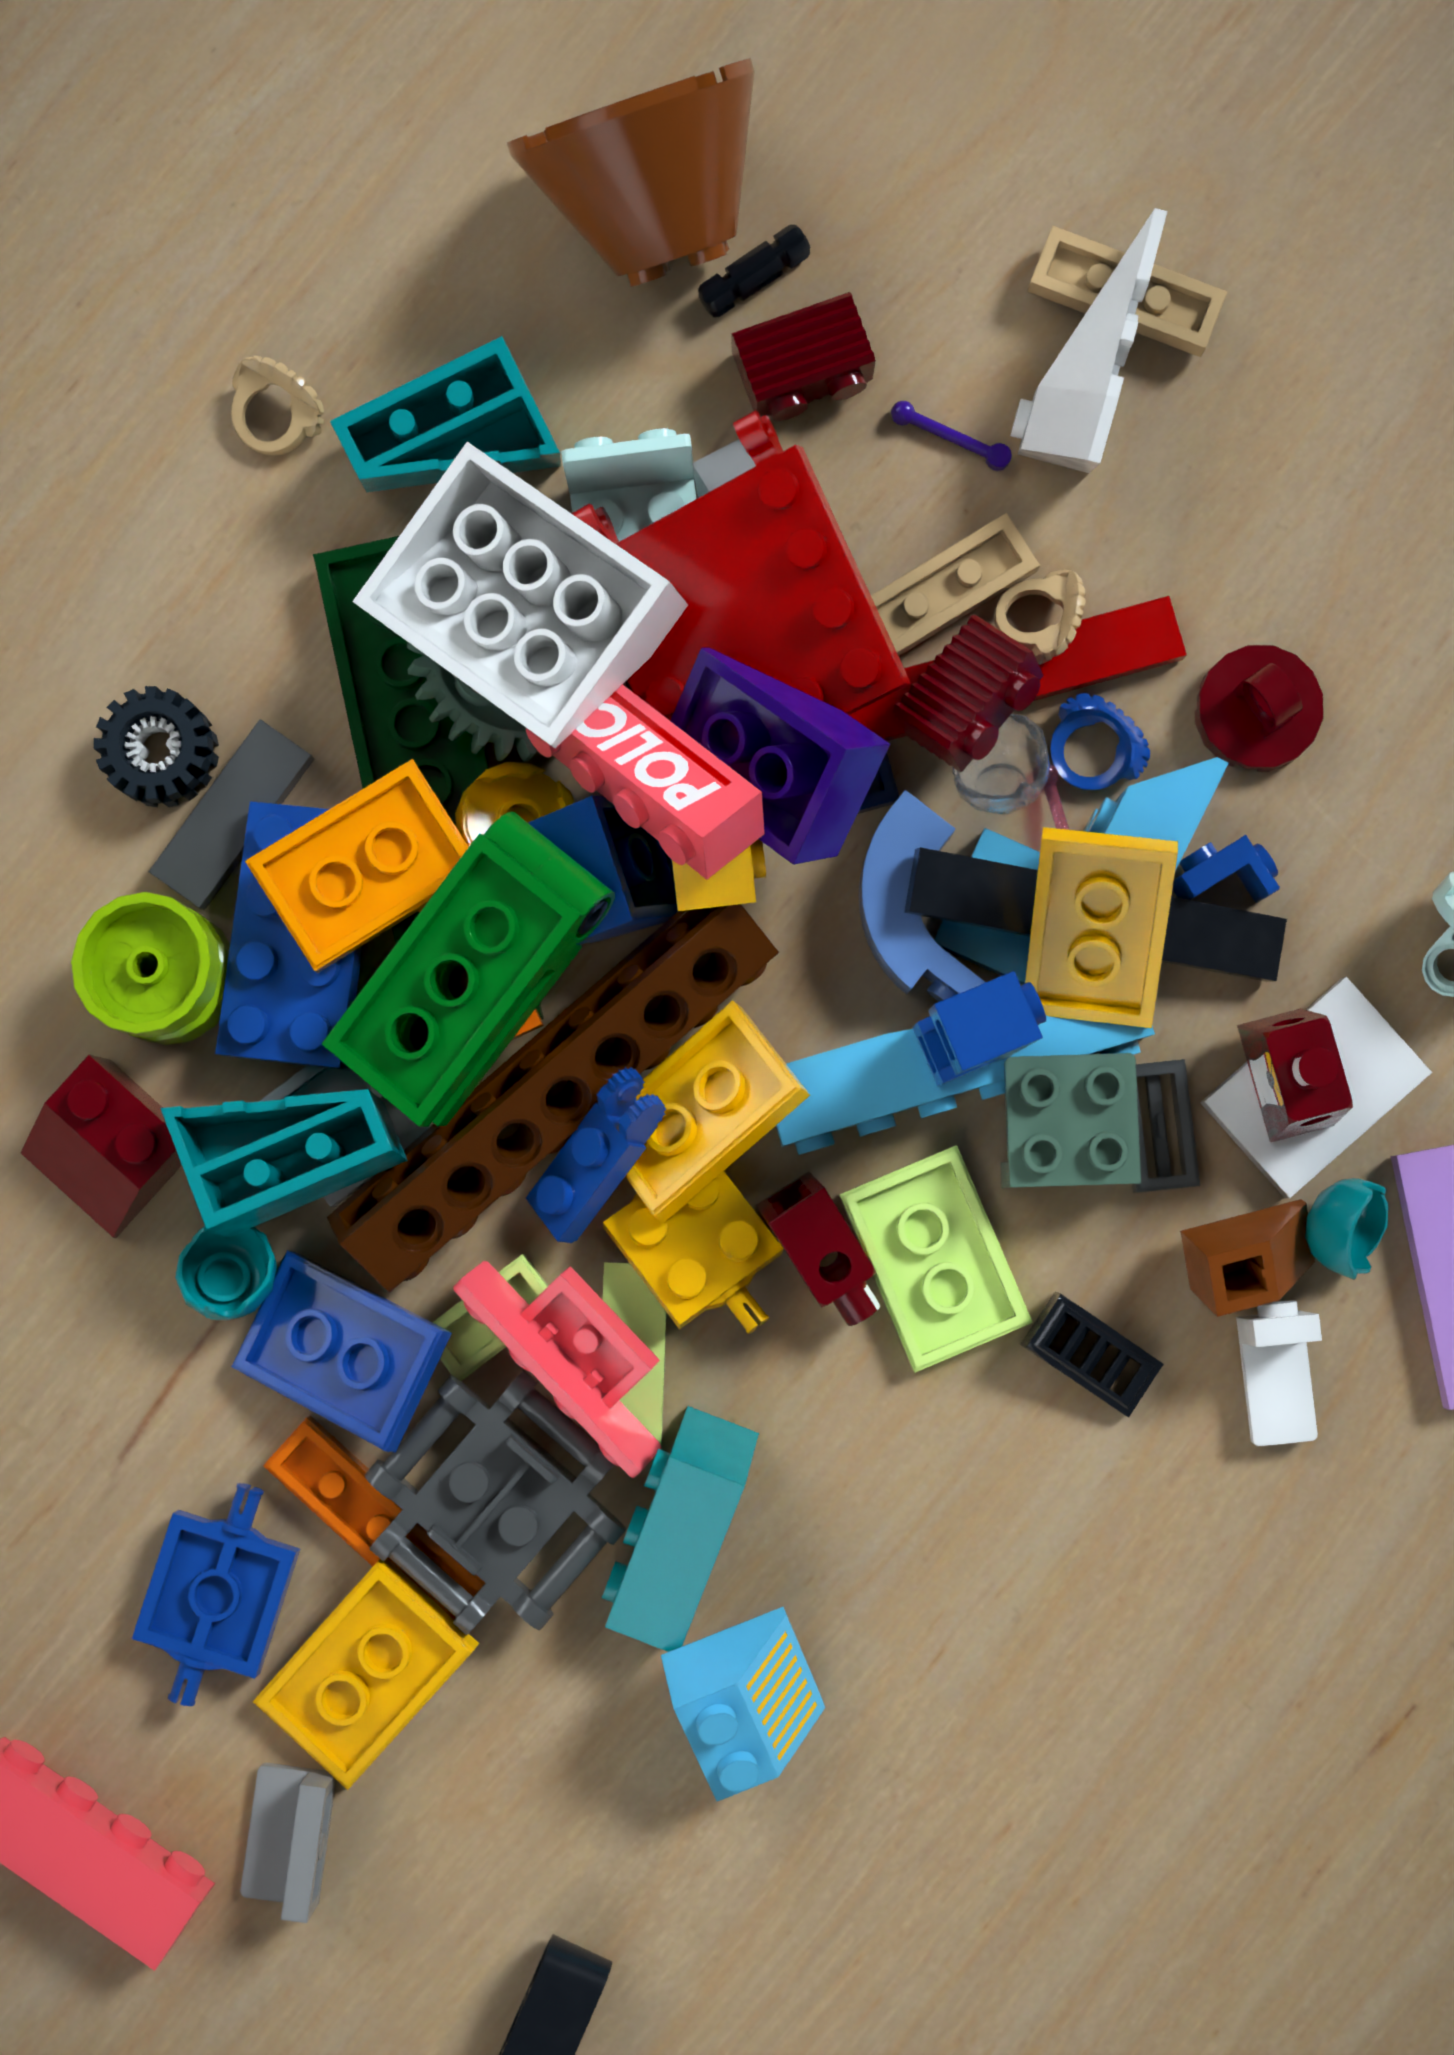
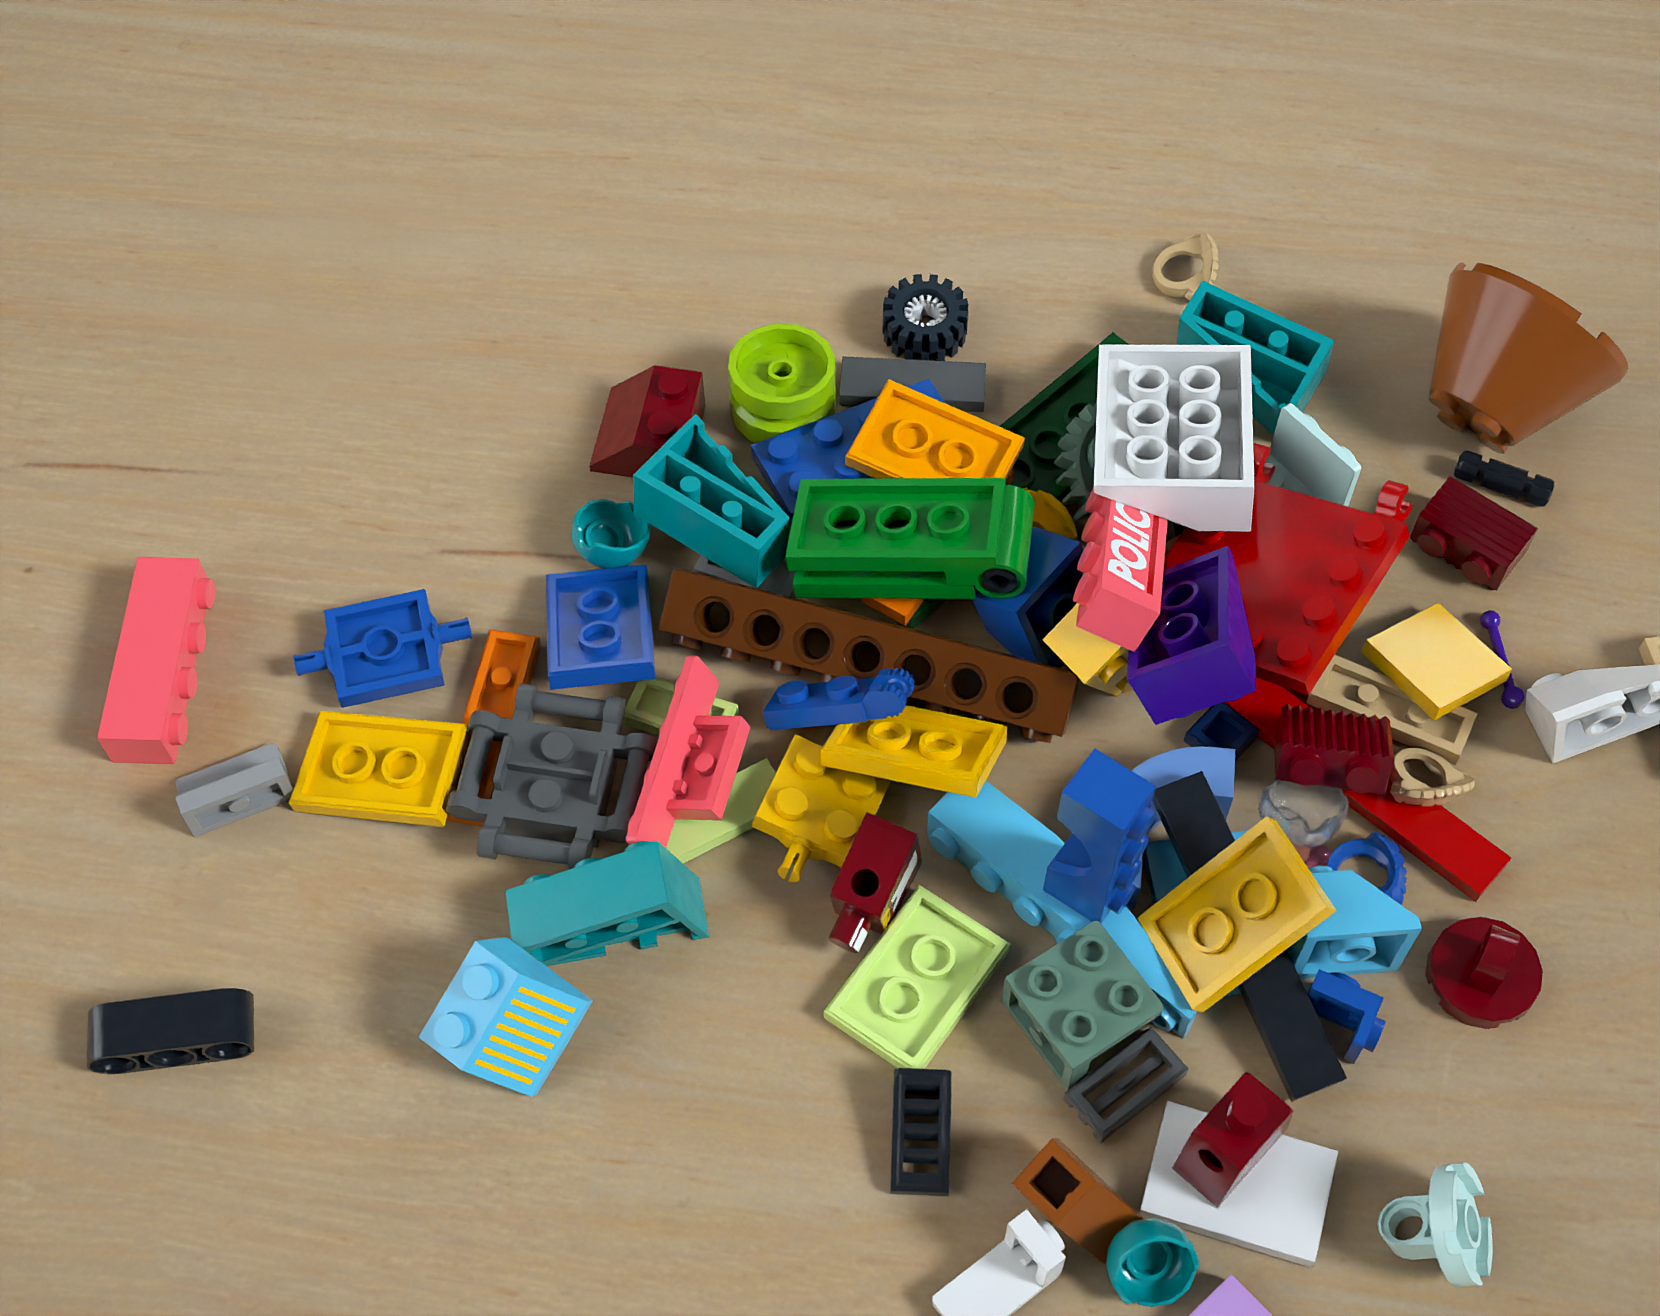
camera: 55 degrees right, 25 degrees down
(922, 508) = (1436, 661): none -> yellow tile

